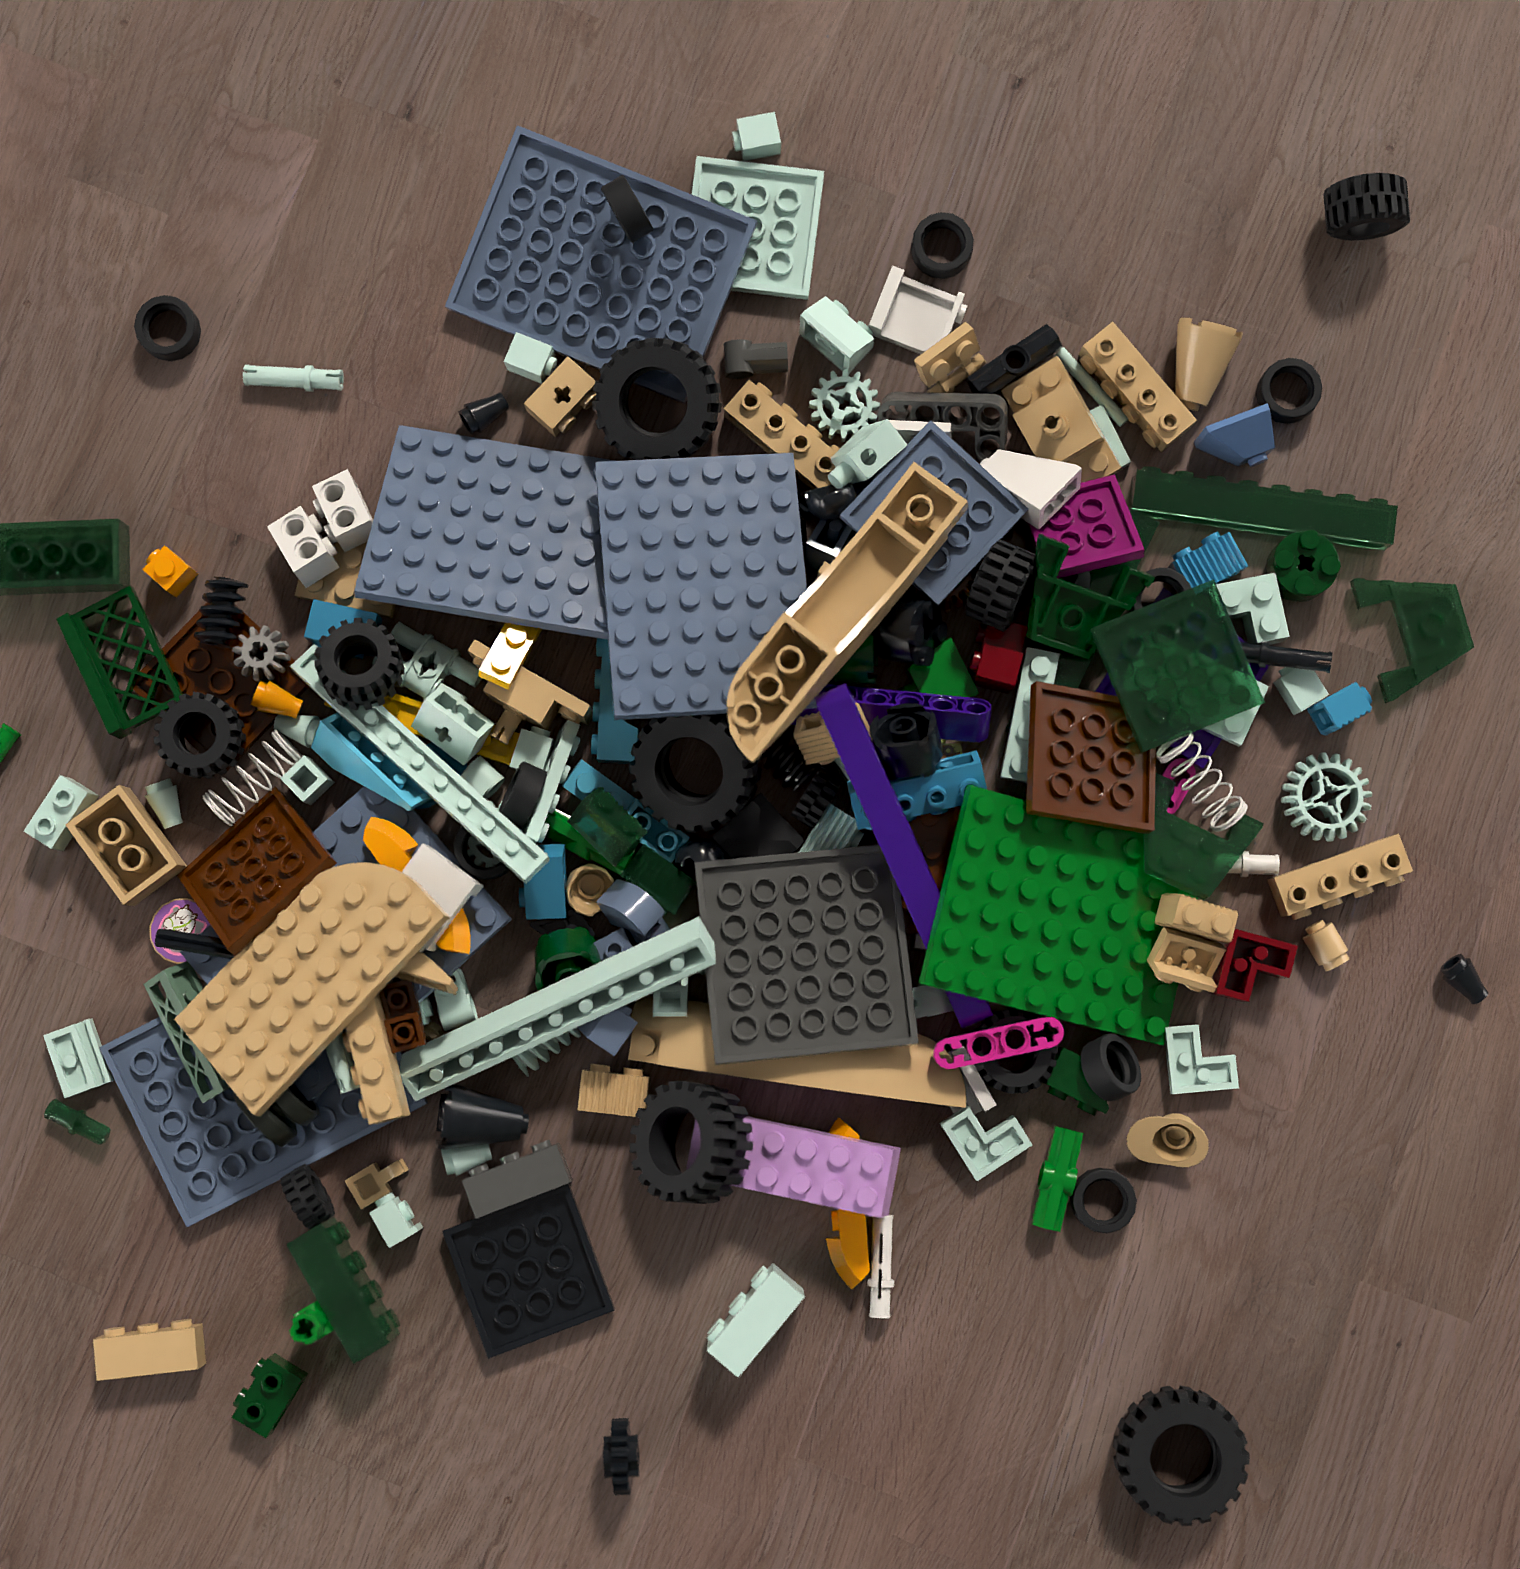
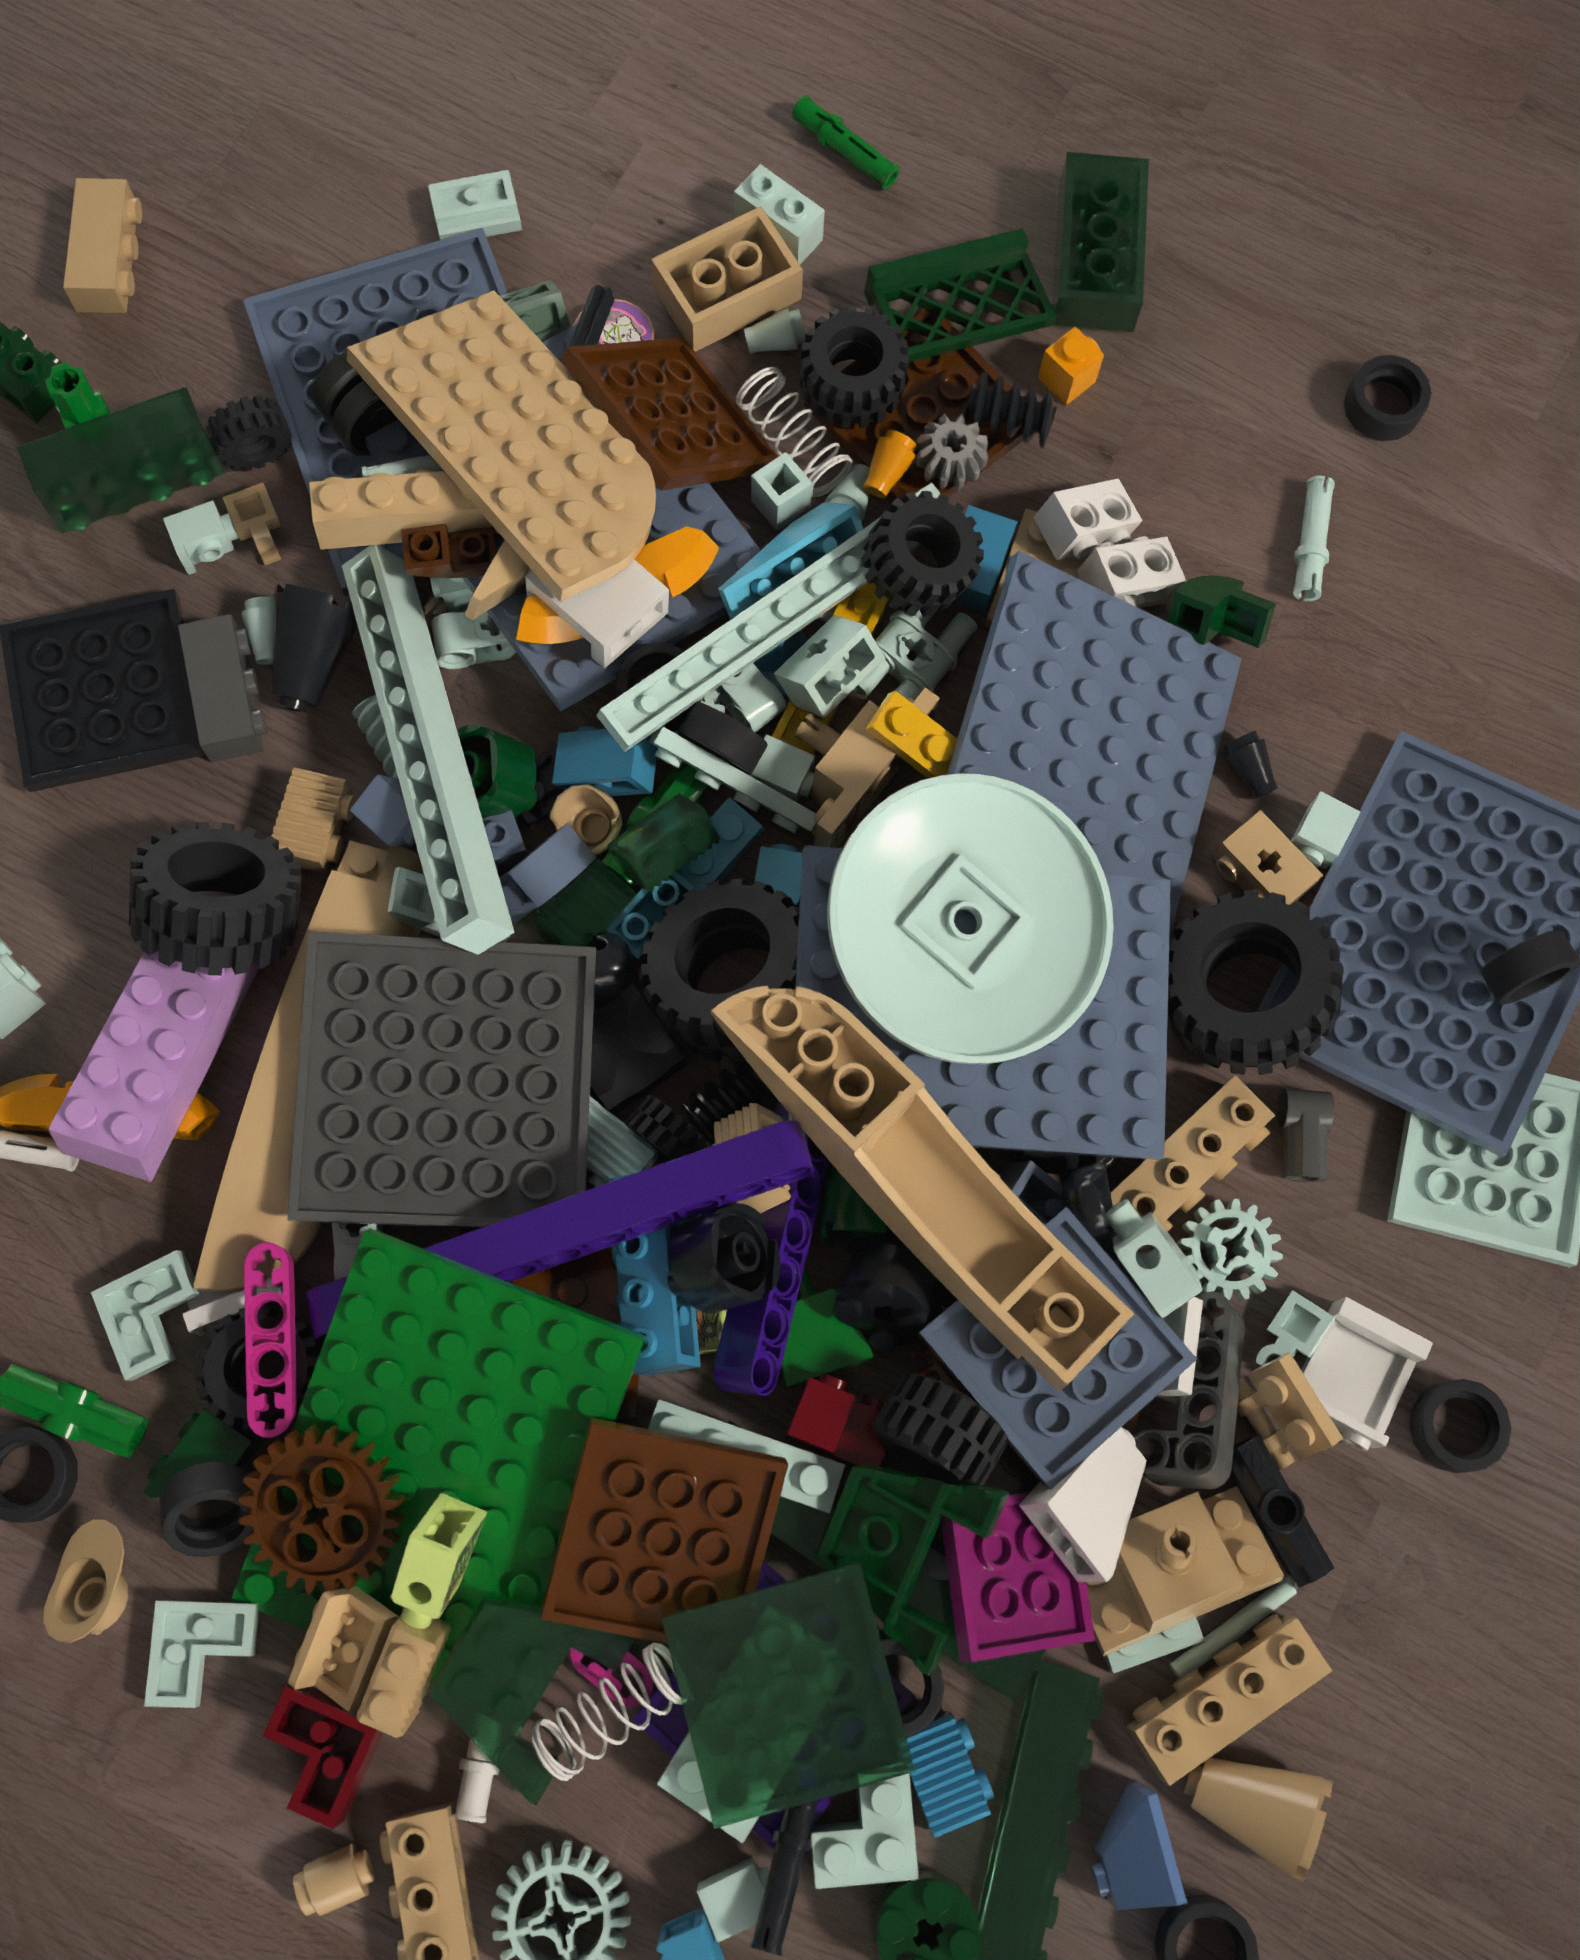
camera: 90 degrees right, 10 degrees down
(77, 1122) = (397, 198): clear green axle -> none
(362, 446) = (1220, 606): none -> dark green brick
(663, 549) = (1035, 905): none -> light aqua dish
(835, 333) = (1336, 1250): light aqua slope -> none
(891, 356) = (1298, 1327): none -> light aqua plate
(1116, 1012) = (280, 1523): none -> reddish brown gear
(1137, 903) = (429, 1568): none -> yellowish green torso

